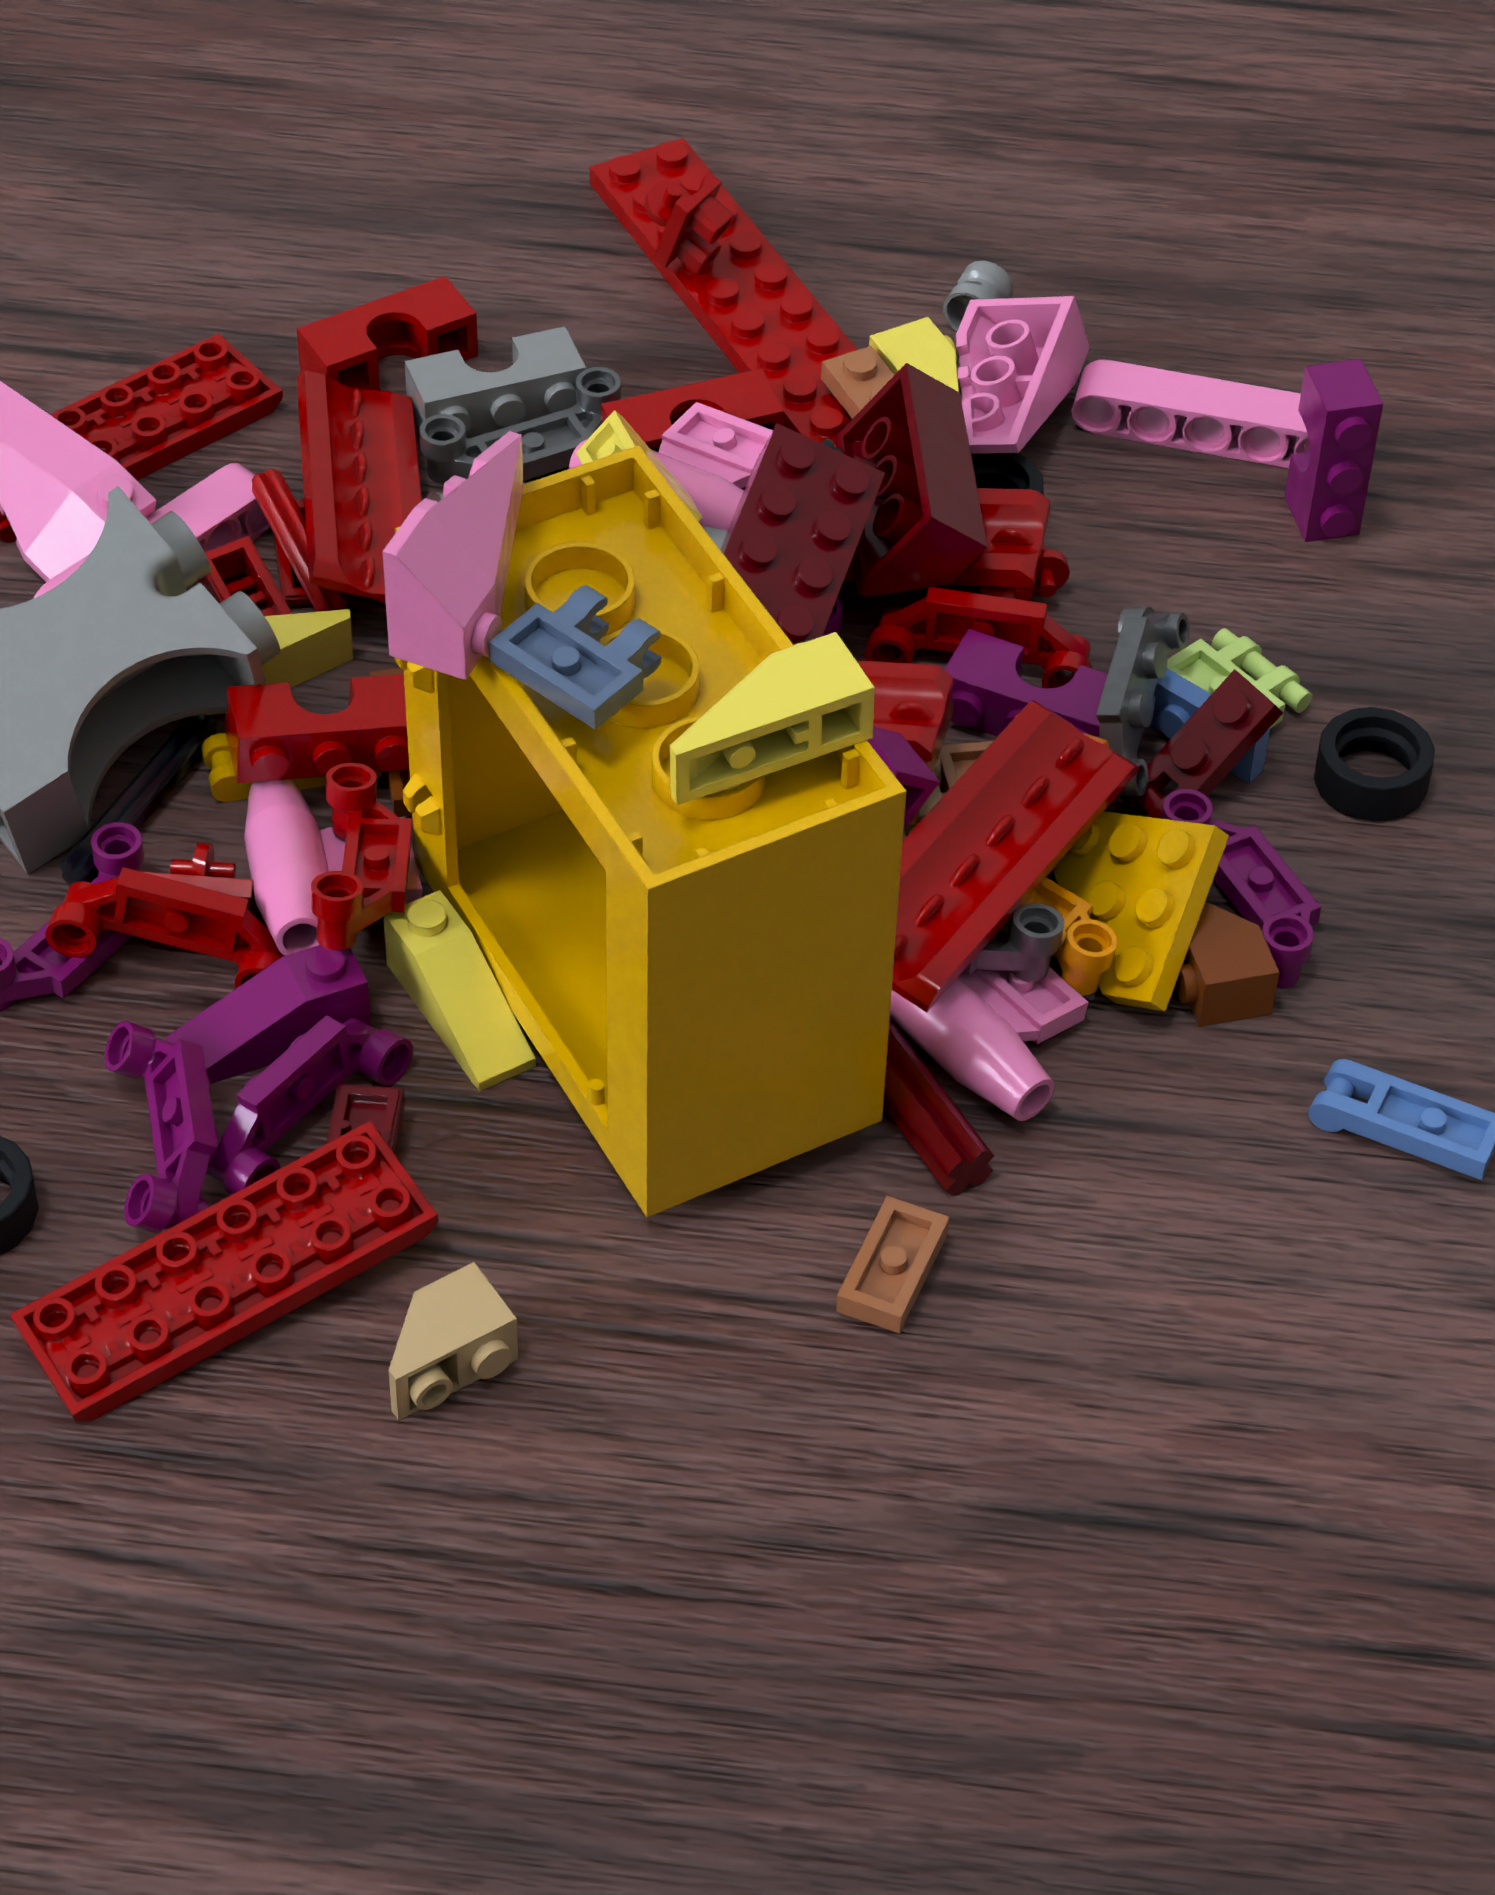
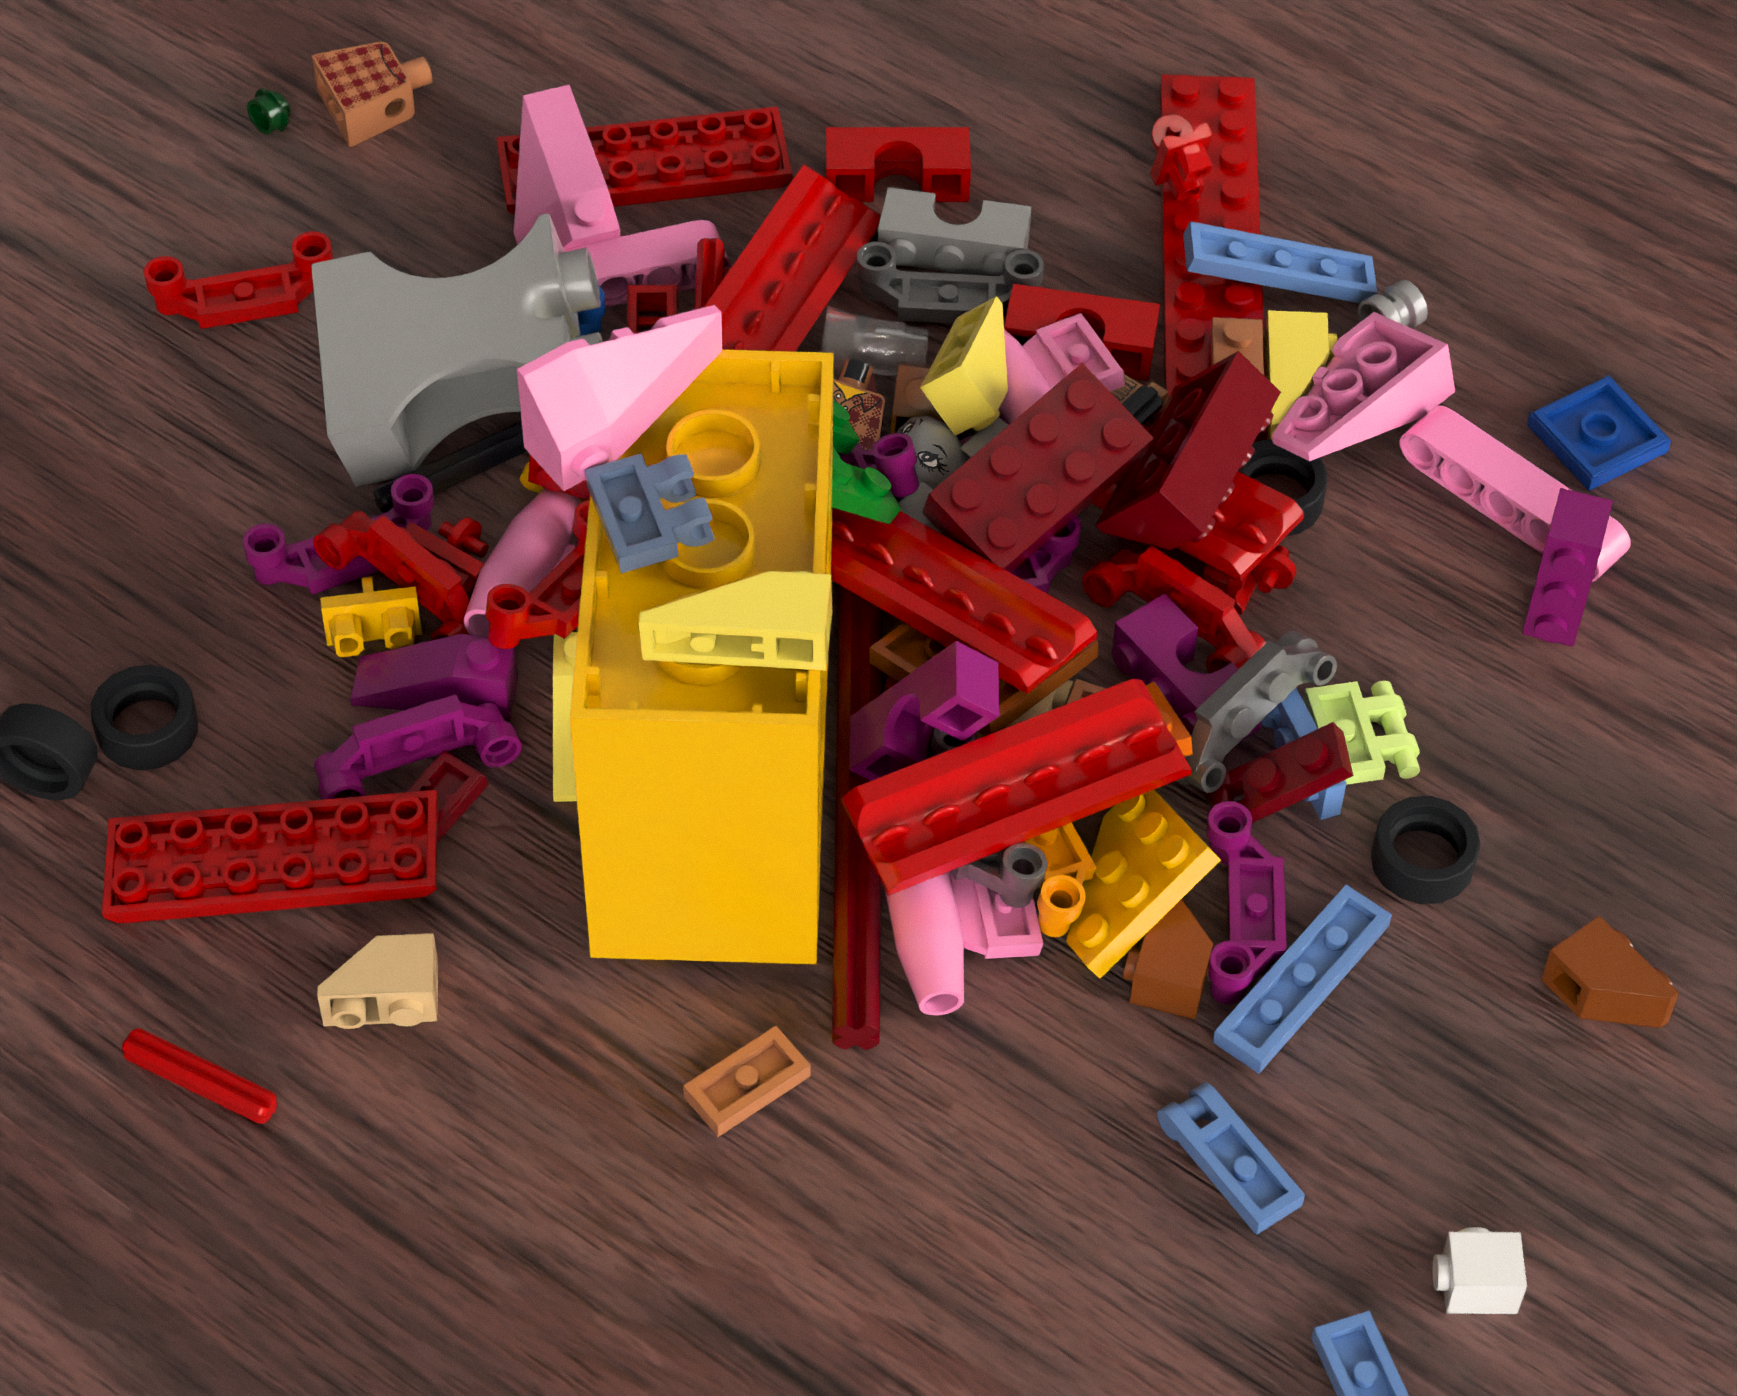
camera: 30 degrees right, 5 degrees up
(159, 985) = (369, 617): none -> yellow hips
(179, 1124) = (307, 739): magenta plate -> none
(305, 1528) = (199, 1075): none -> red axle
(844, 291) = (1279, 263): none -> medium blue plate
(1241, 336) = (1598, 432): none -> blue tile
(1350, 929) = (1302, 979): none -> medium blue plate

